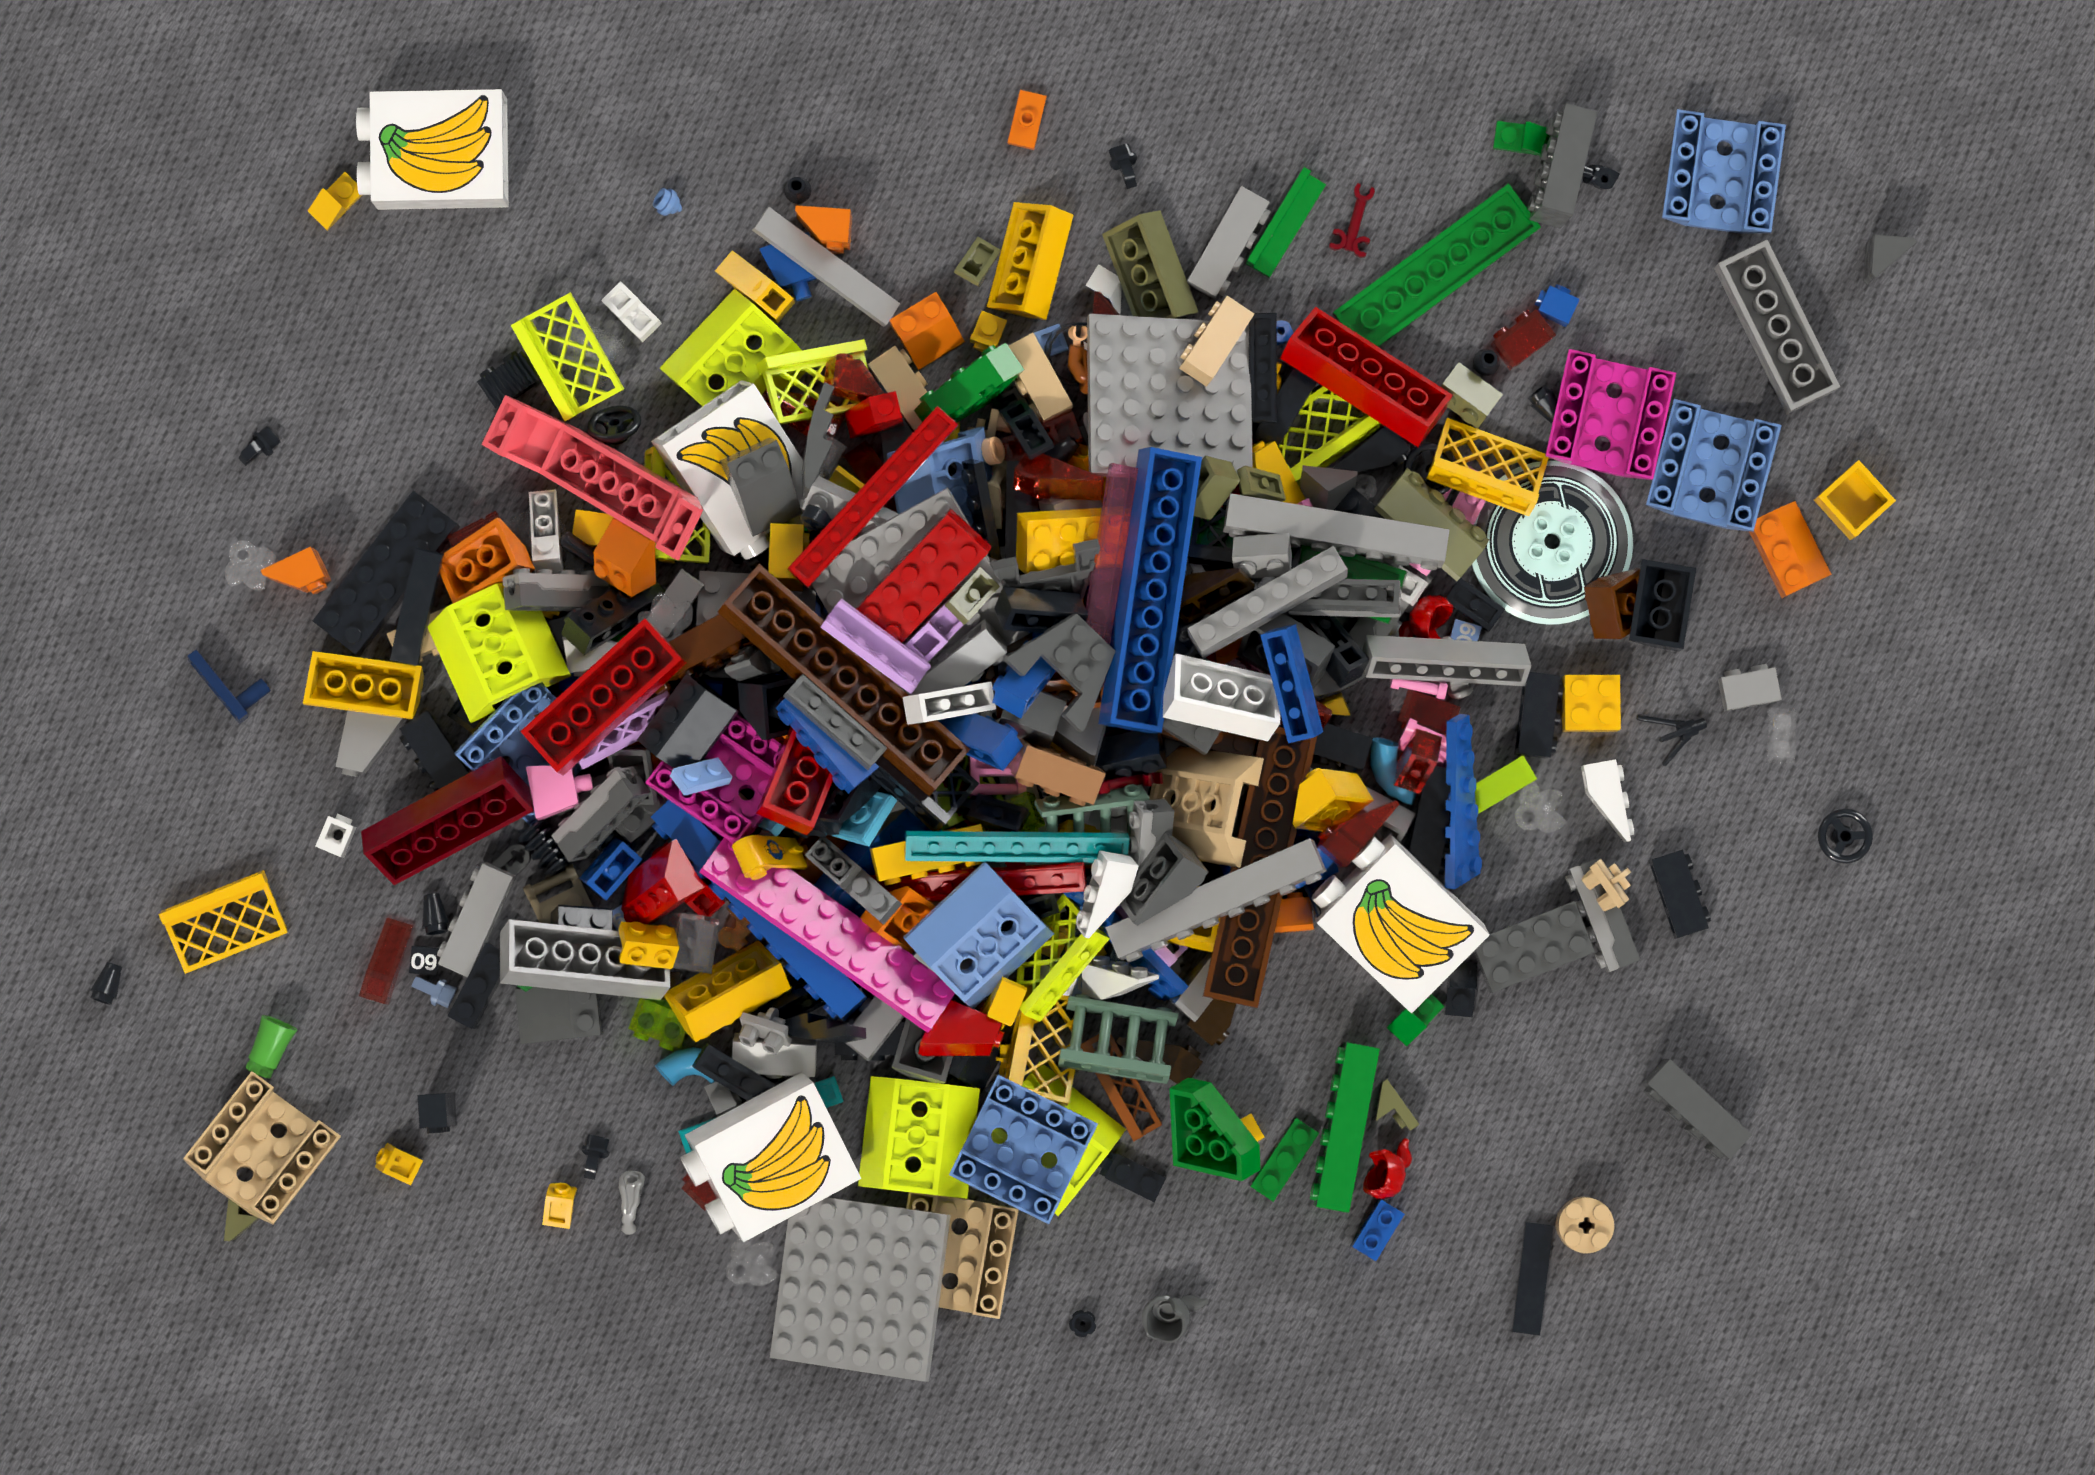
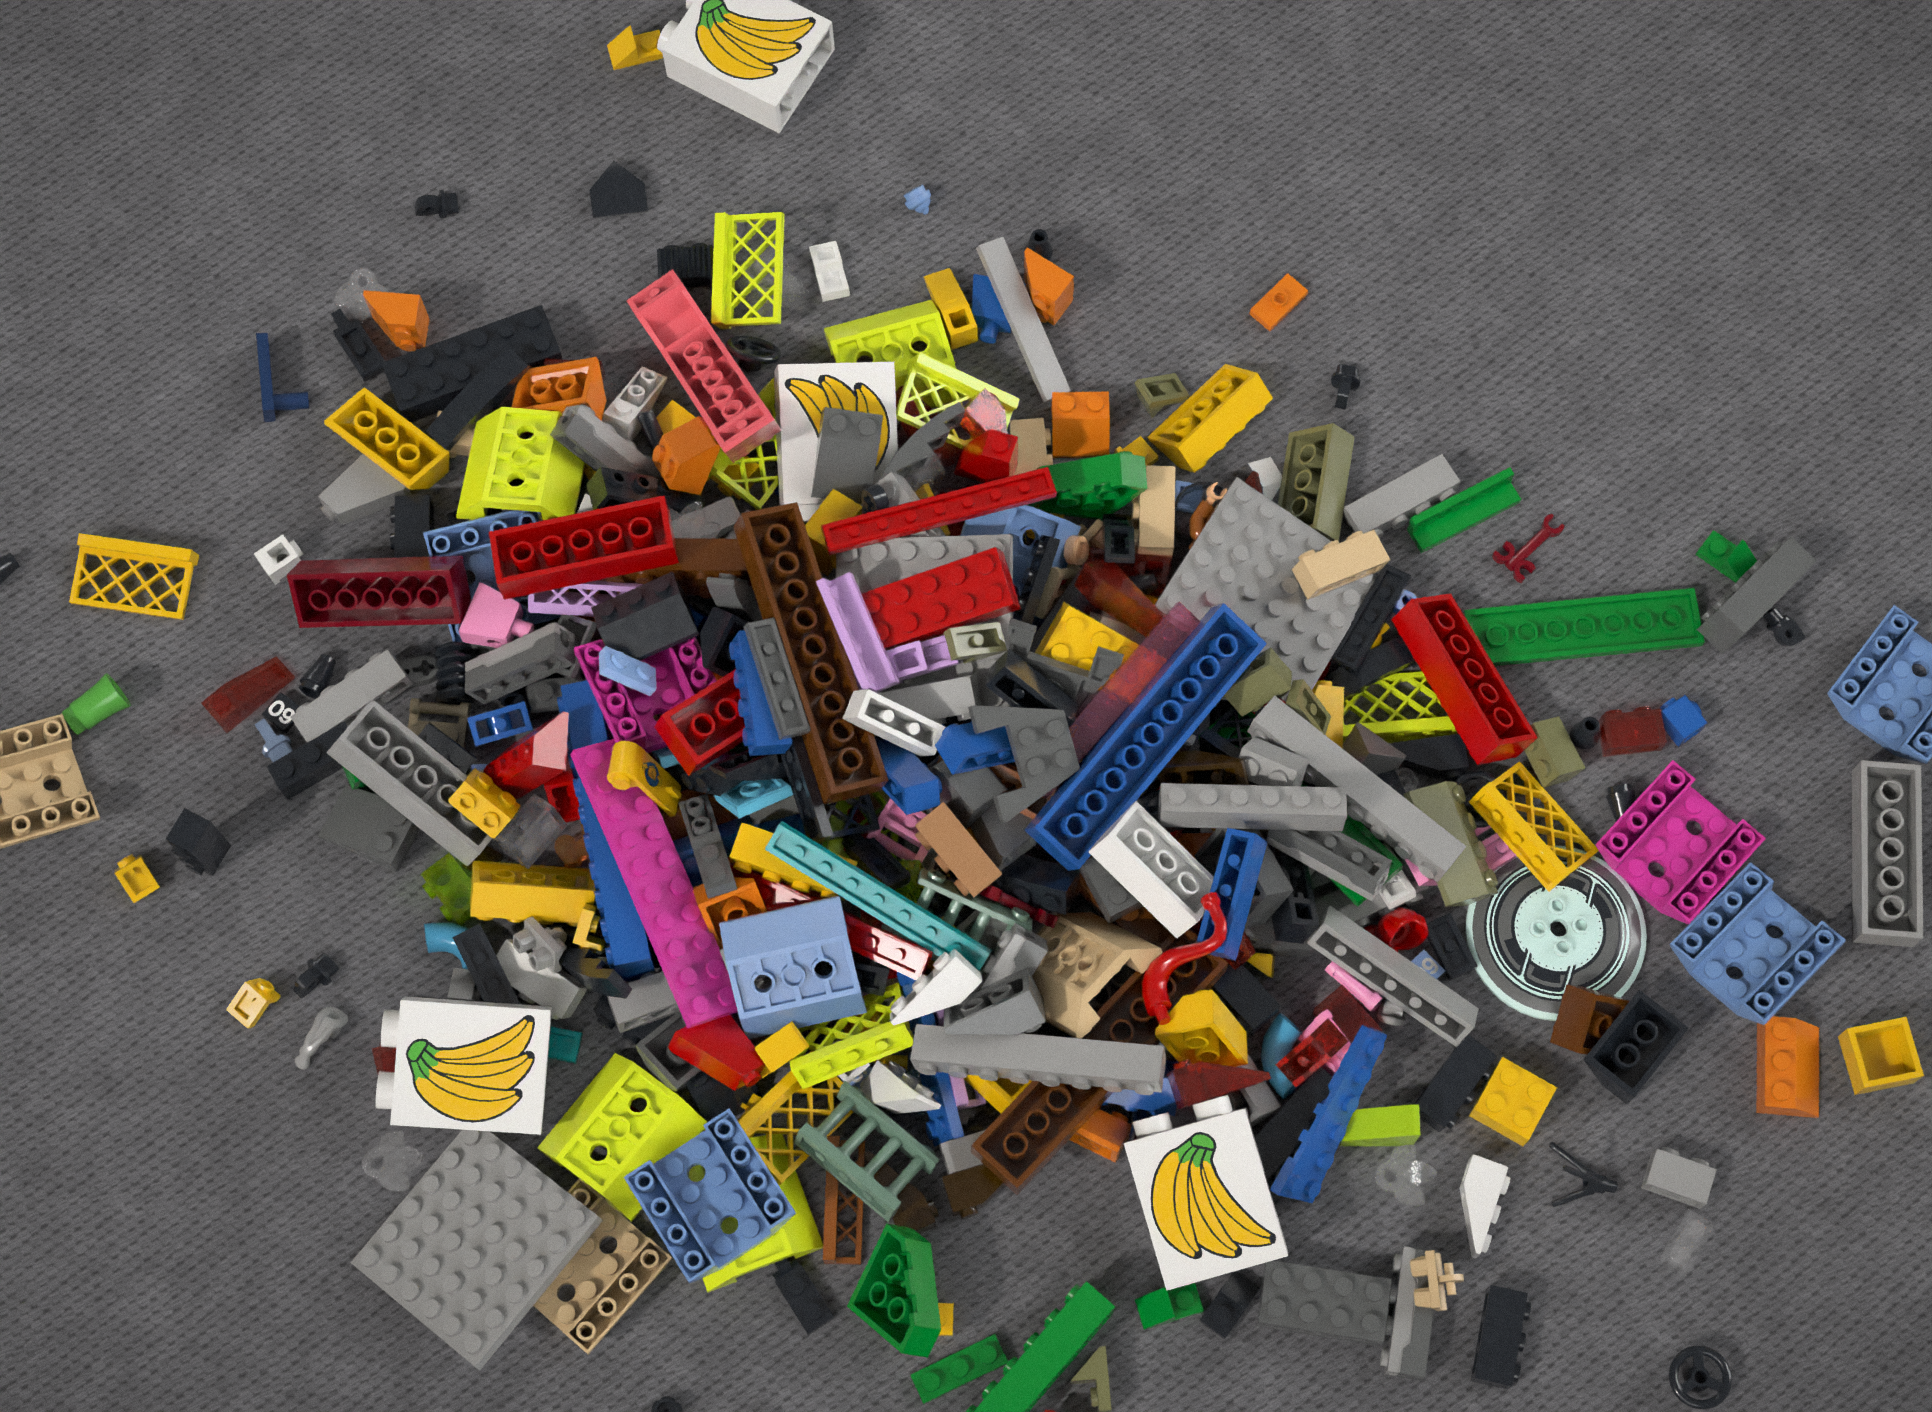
camera: 35 degrees right, 15 degrees down
(276, 613) = (357, 346): none -> black hinge
(407, 345) = (617, 193): none -> black slope
(793, 999) = (588, 924): none -> yellow bracket
(1269, 775) = (1159, 971): none -> red animal

